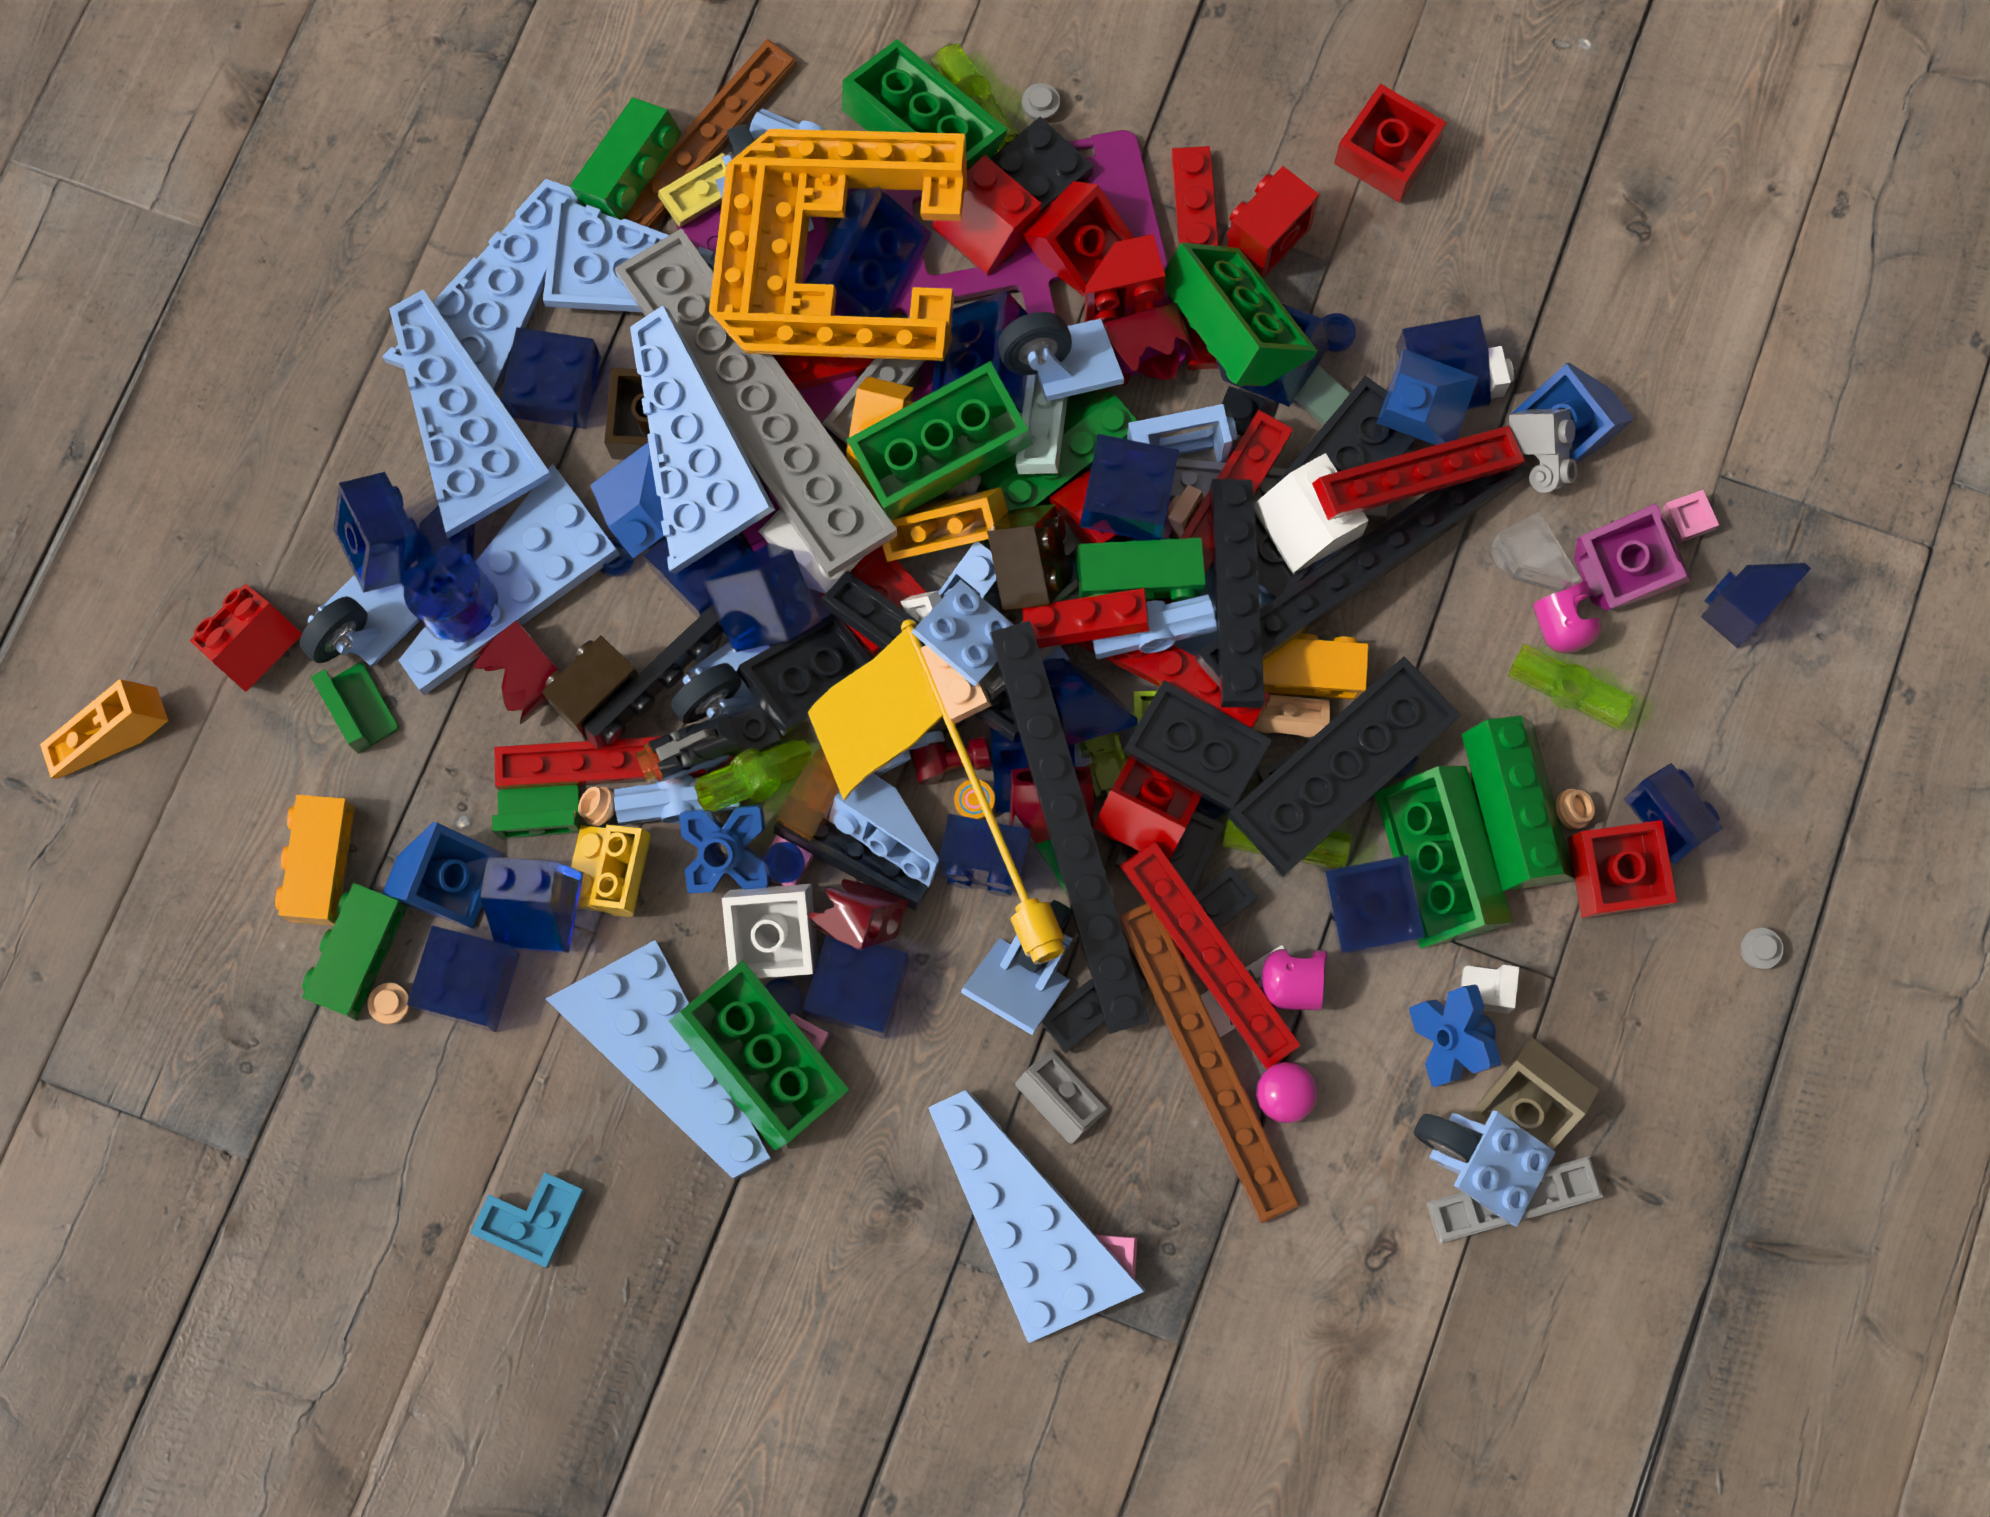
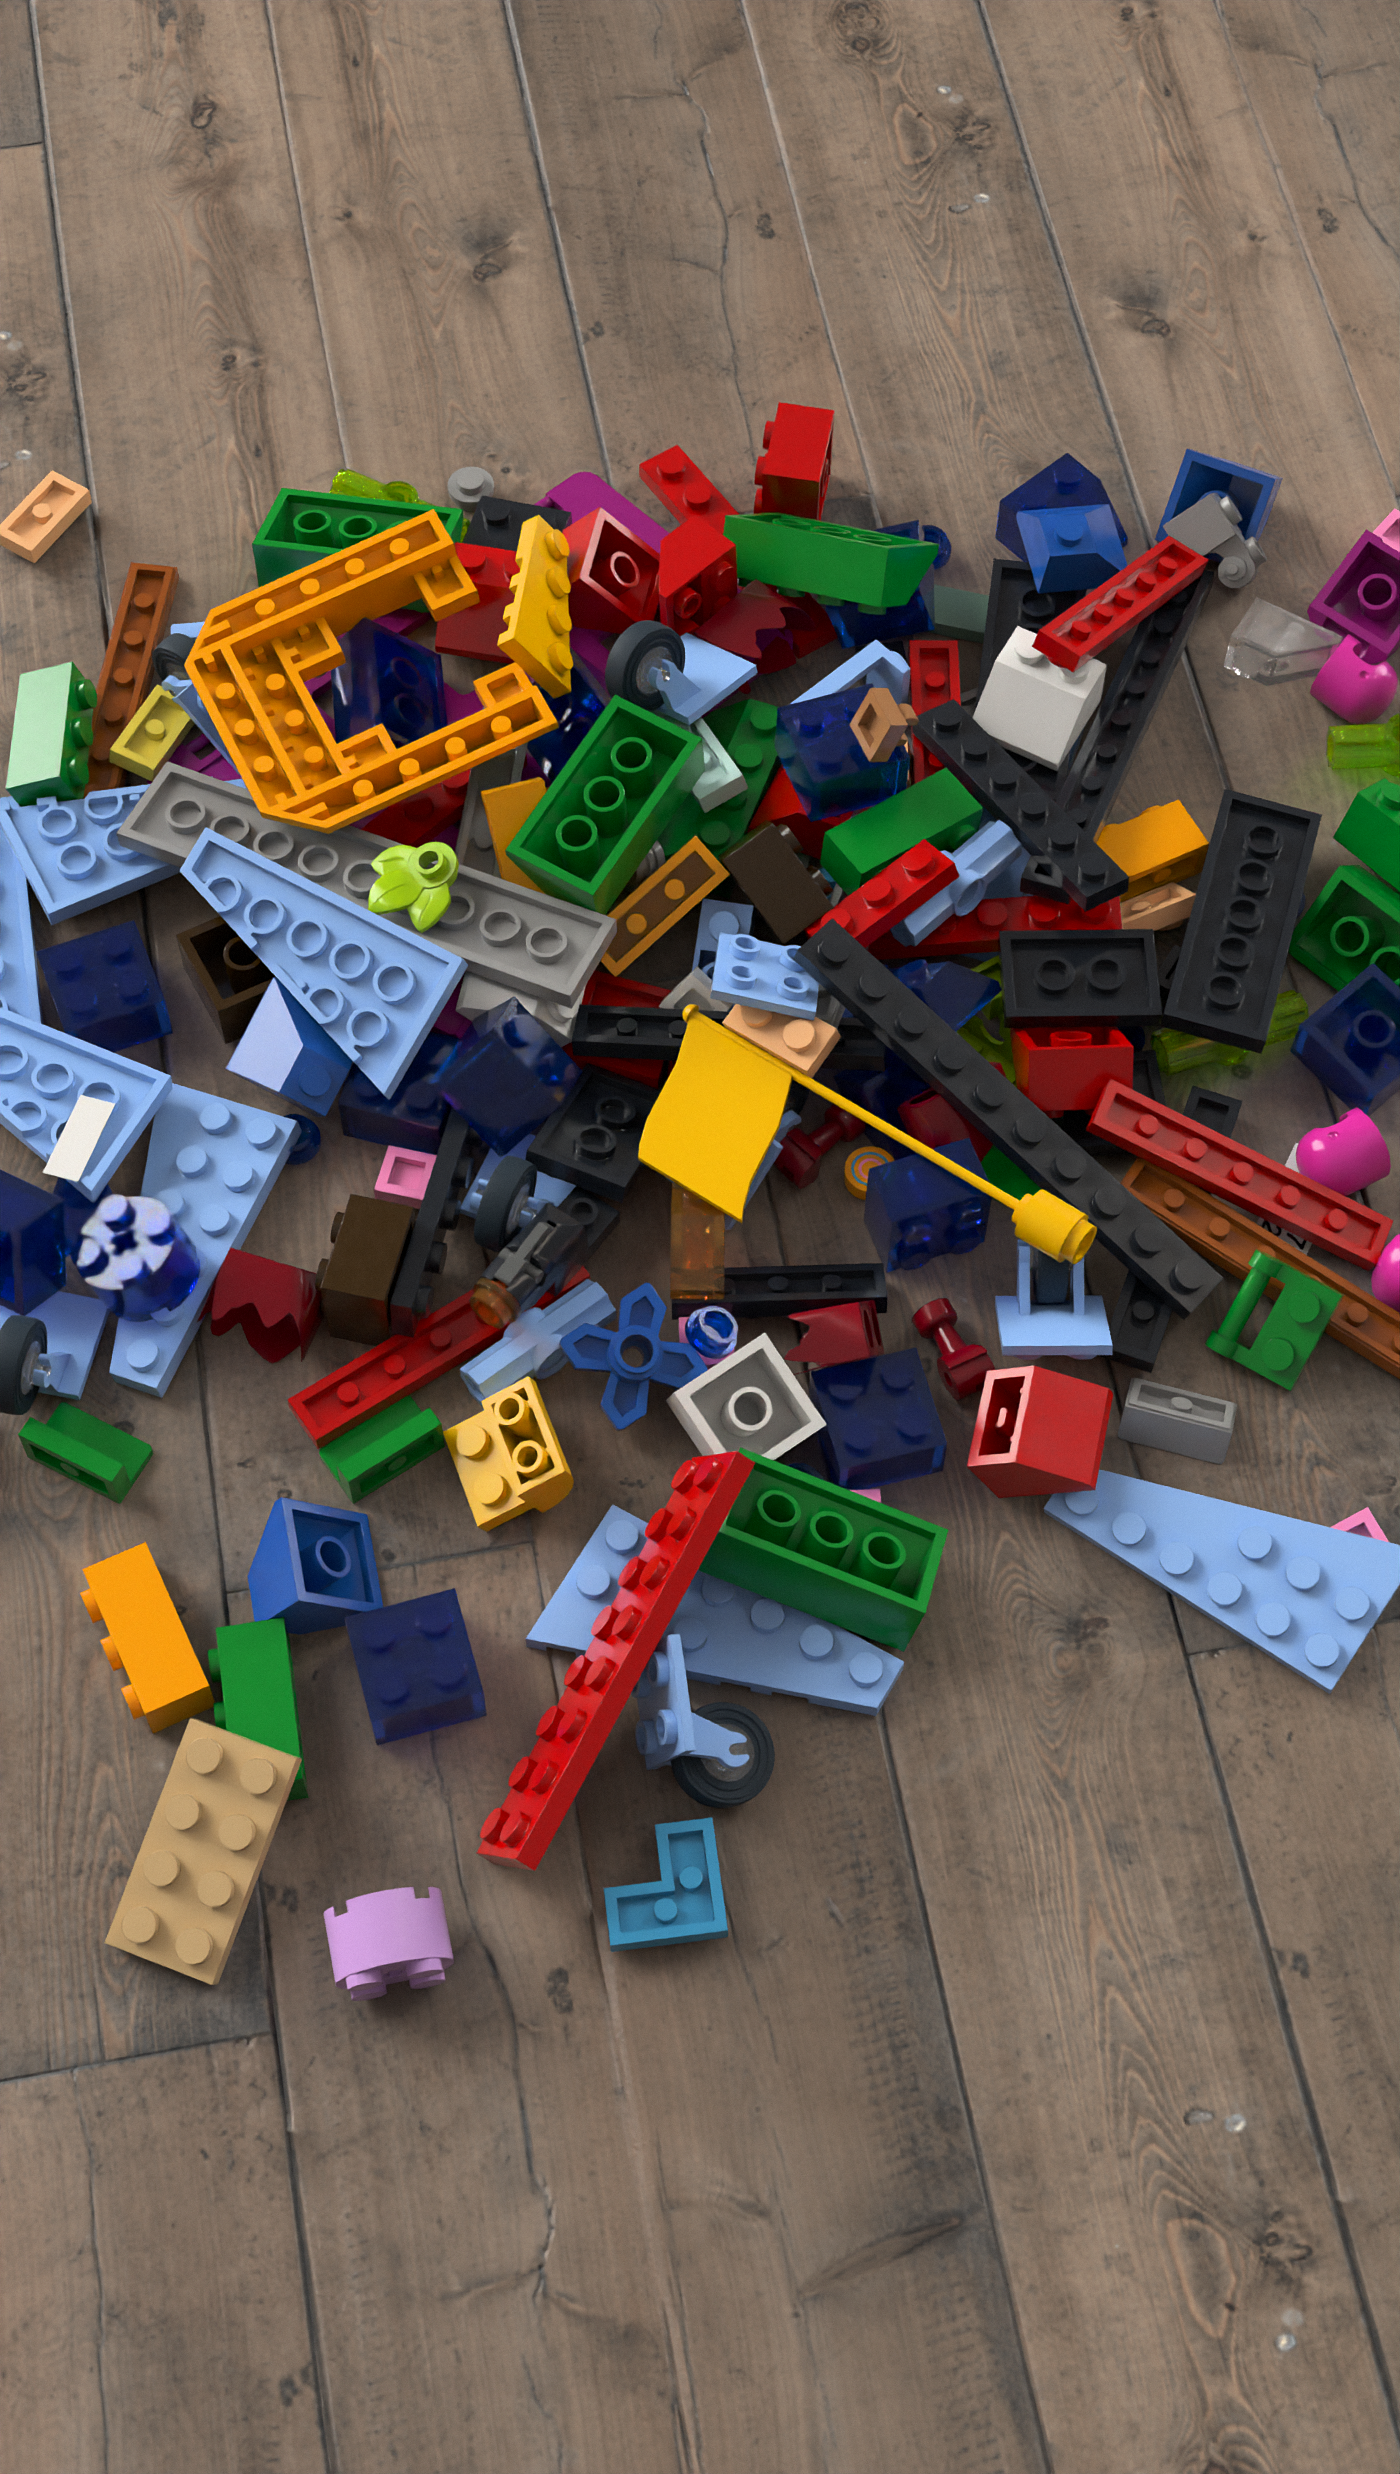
camera: 35 degrees left, 15 degrees down
(264, 1025) = (203, 1851): none -> tan plate
(336, 1152) = (389, 1941): none -> lavender brick
(388, 1003) = (338, 1750): light nougat plate -> none
(460, 488) = (79, 1138): none -> white sticker
(531, 903) = (444, 1533): clear blue slope -> none
(577, 1055) = (614, 1661): none -> red plate
(597, 805) = (450, 1398): light nougat plate -> none
(611, 1148) = (716, 1752): none -> plate
(664, 625) = (404, 1176): none -> bright pink plate
(752, 775) = (616, 1260): clear neon green piece -> none
(772, 425) = (411, 886): none -> lime plate
(883, 823) = (802, 1239): light blue slope -> none
(940, 977) = (961, 1365): none -> dark red leg
(951, 1058) = (1039, 1432): none -> red slope
(991, 261) = (540, 610): none -> yellow wing
(1151, 496) = (881, 724): none -> medium nougat tile
(1171, 1083) = (1291, 1327): none -> green plate
(1390, 142) = (862, 353): red brick -> none
(1500, 372) = (1123, 500): white plate -> none

